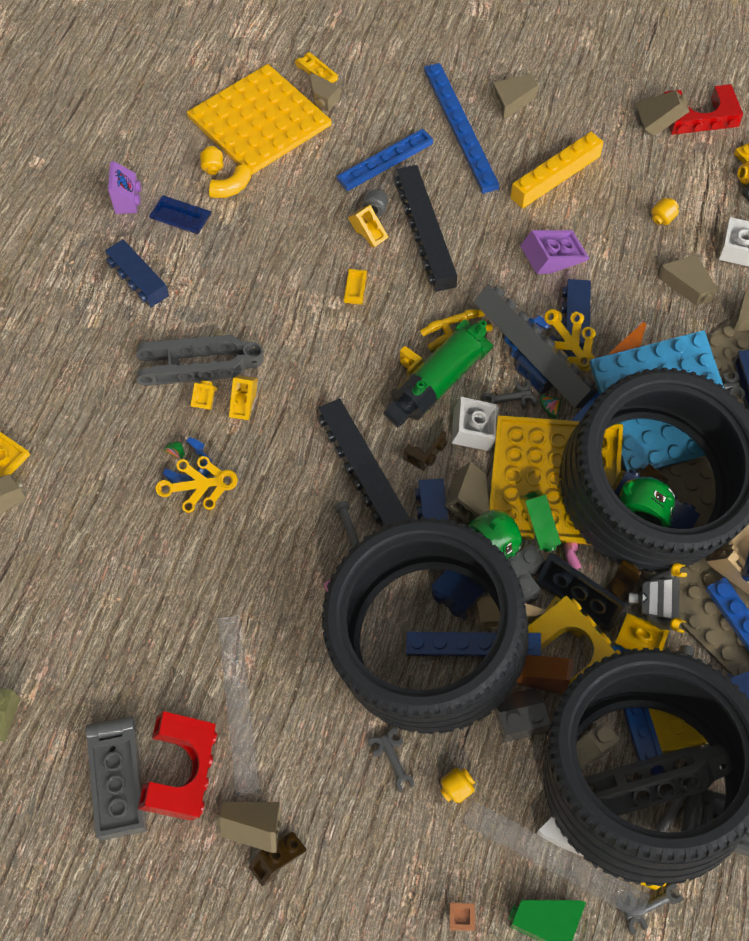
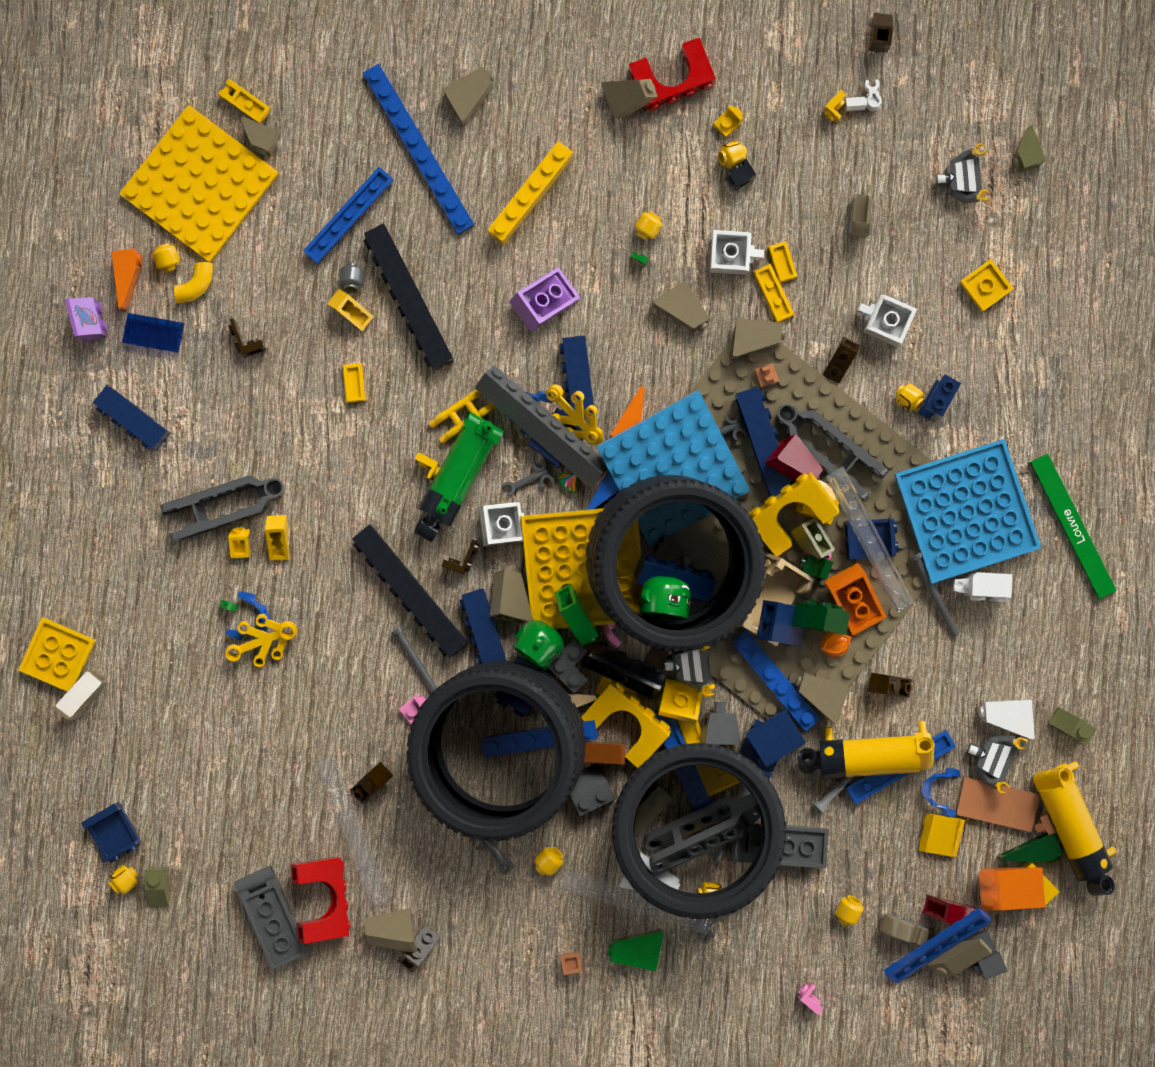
camera: 15 degrees left, 25 degrees up
(172, 167) = (126, 273): none -> orange slope
(267, 239) = (253, 346): none -> dark brown bracket
(272, 652) = (371, 783): none -> dark brown slope
(652, 237) = (639, 259): none -> green tile

